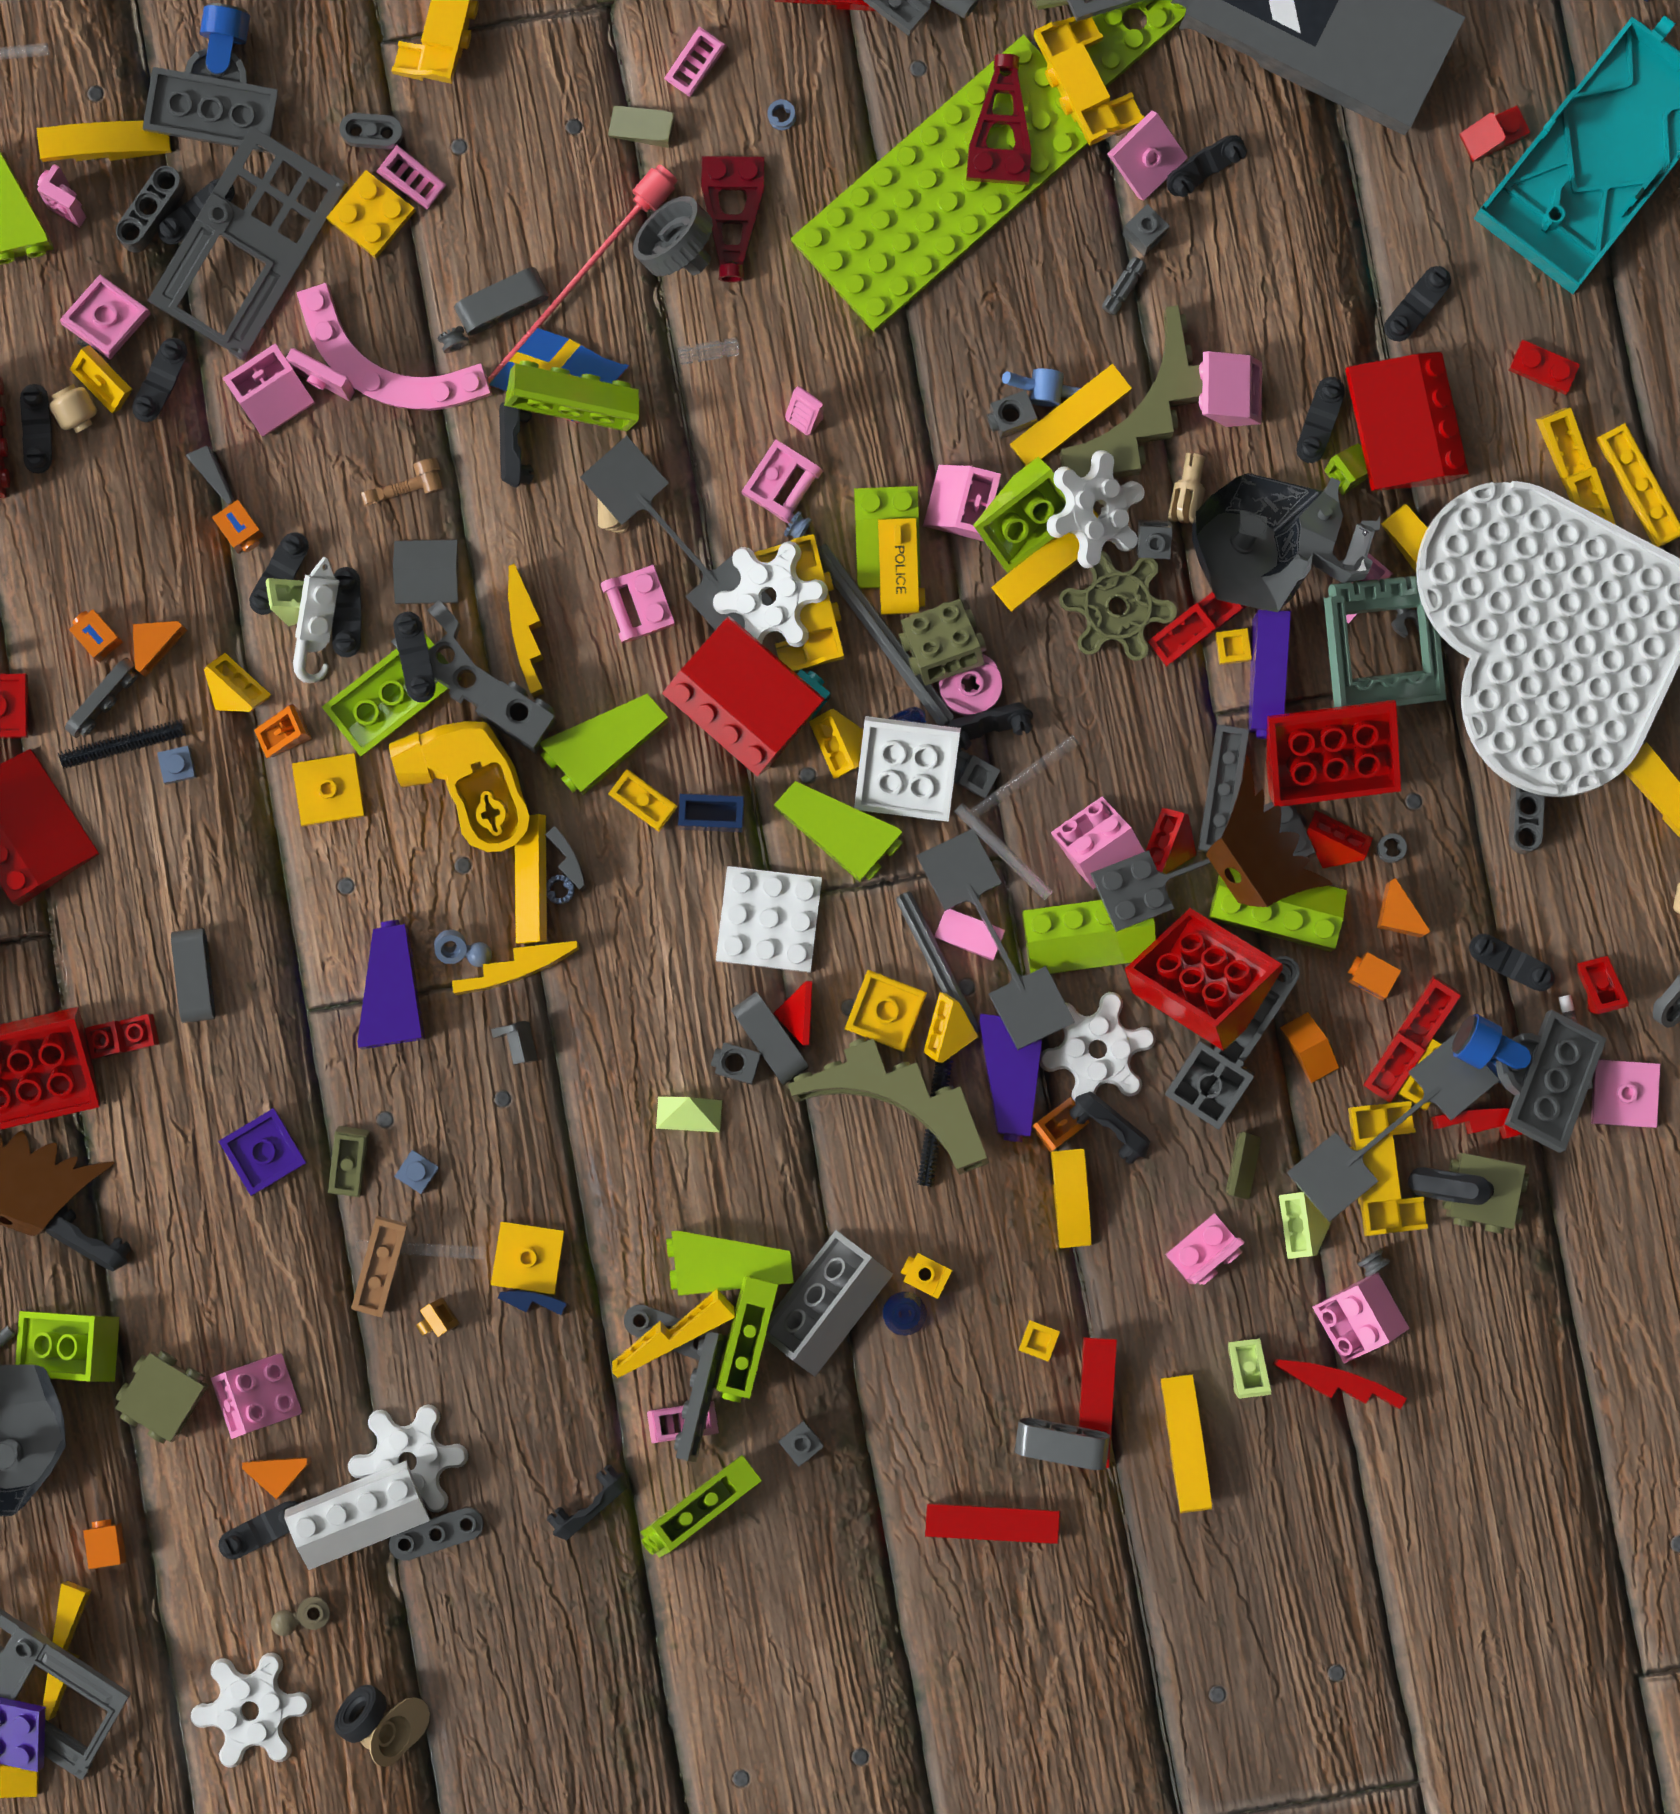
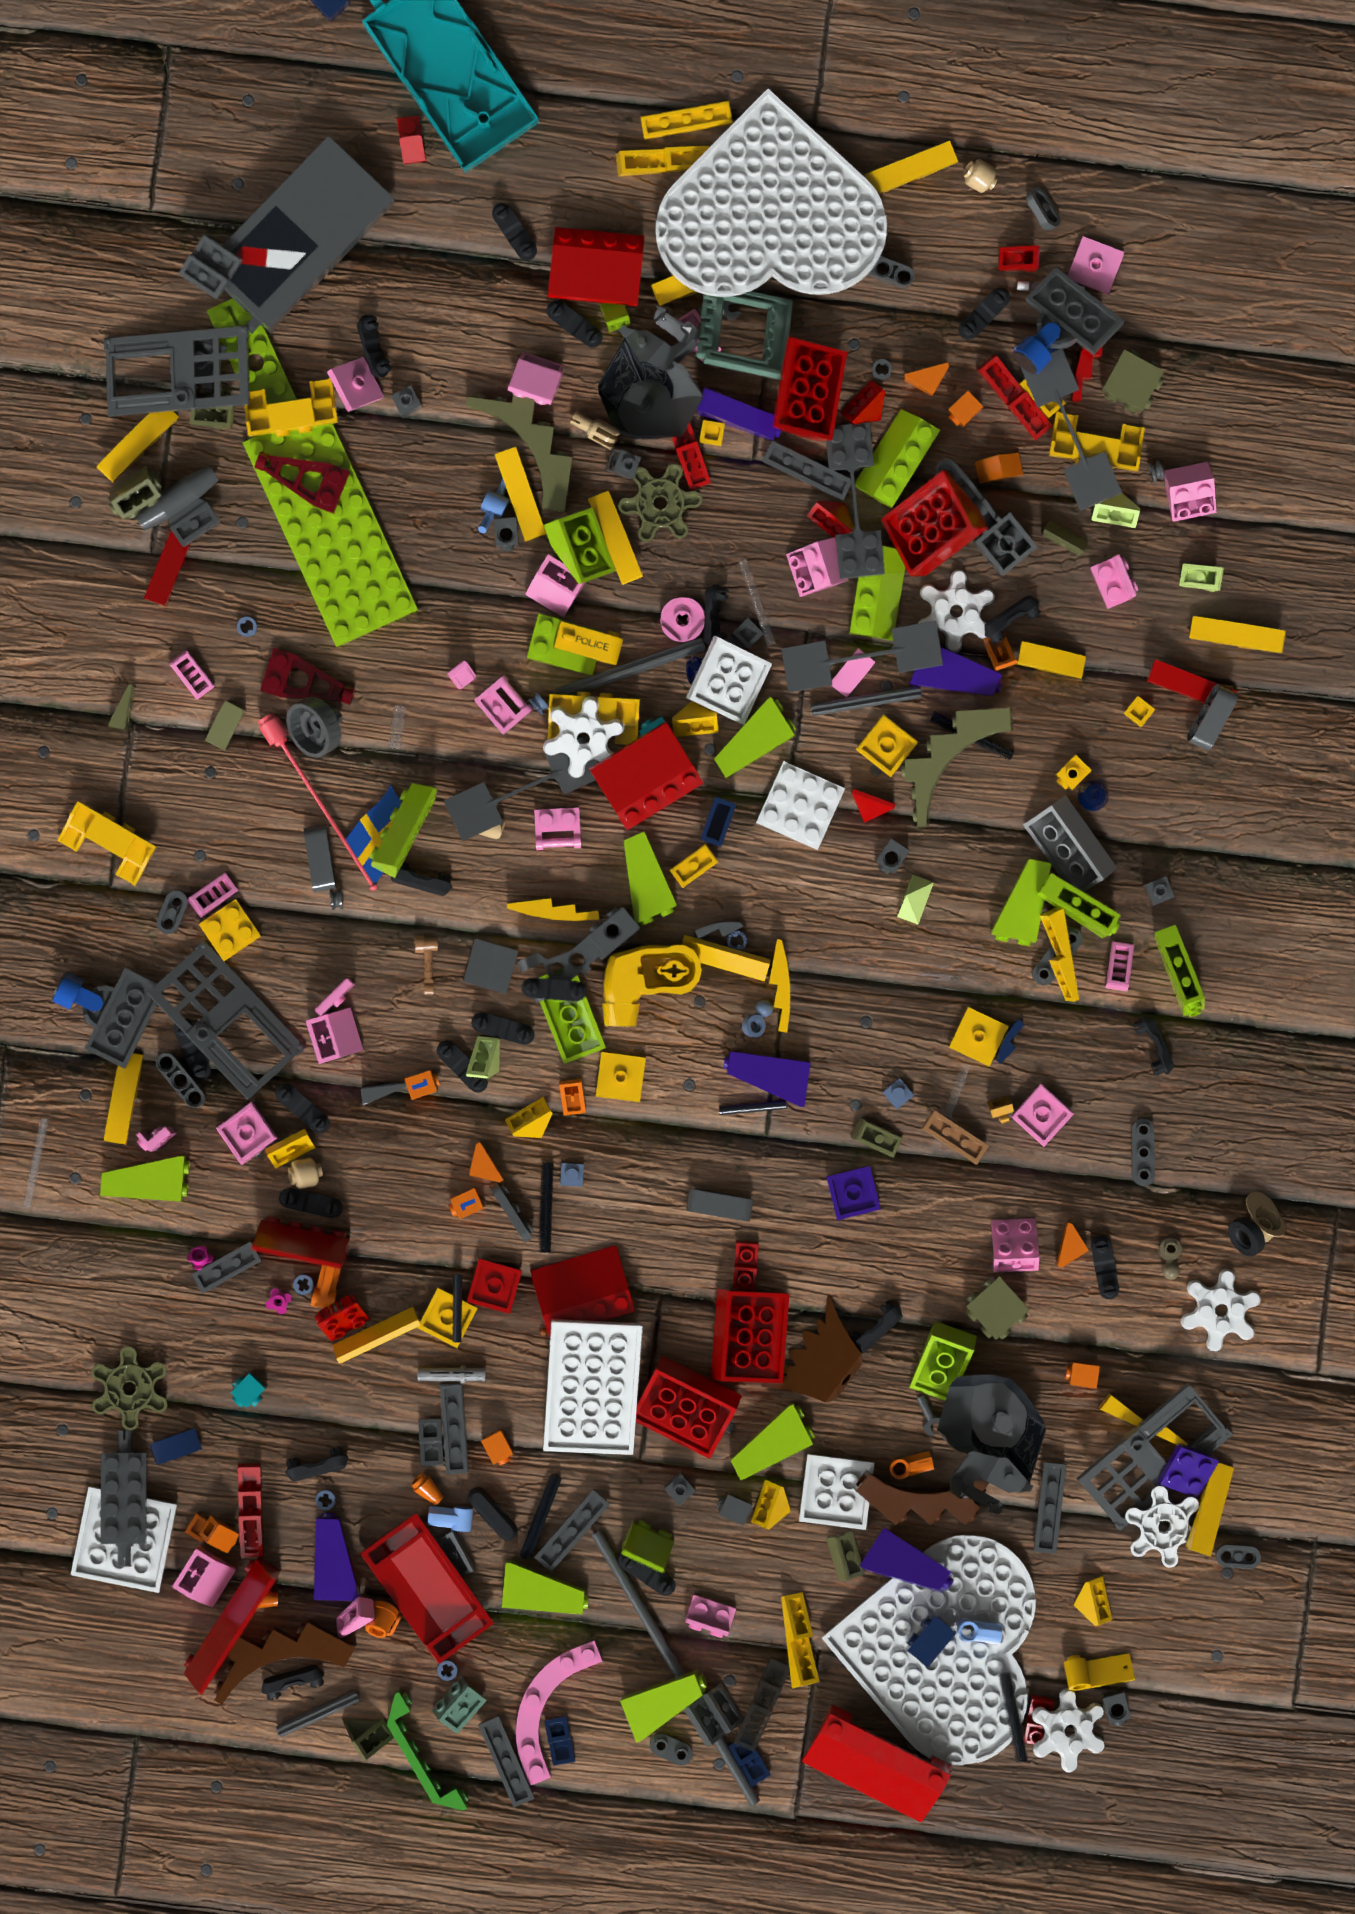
camera: 70 degrees left, 5 degrees up
(315, 619) = (502, 1050): white plate -> none
(339, 980) = (752, 1107): none -> black bar
(356, 1515) = (1115, 1200): white slope -> none
(378, 383) = (345, 964): bright pink plate -> none
(419, 1440) = (1073, 1161): white plate -> none
(446, 1378) = (1042, 1115): none -> bright pink plate
(519, 1040) = (831, 997): dark grey tile -> none
(697, 1408) = (1115, 953): dark grey plate -> none
(769, 1038) = (881, 829): dark grey beam -> none
(942, 642) = (649, 629): olive brick -> none
(948, 1030) = (913, 707): yellow slope -> none
(992, 1523) = (1250, 780): red slope -> none
(1003, 851) = (800, 634): clear piece -> none
(1078, 512) = (581, 505): white plate -> none
(1124, 286) = (439, 428): dark grey axle -> none
(1260, 852) = (861, 459): reddish brown piece -> none
(1328, 1379) = (1224, 526): red slope -> none
(1450, 1186) = (1122, 404): black piece -> none
(1544, 367) = (584, 159): red plate -> none

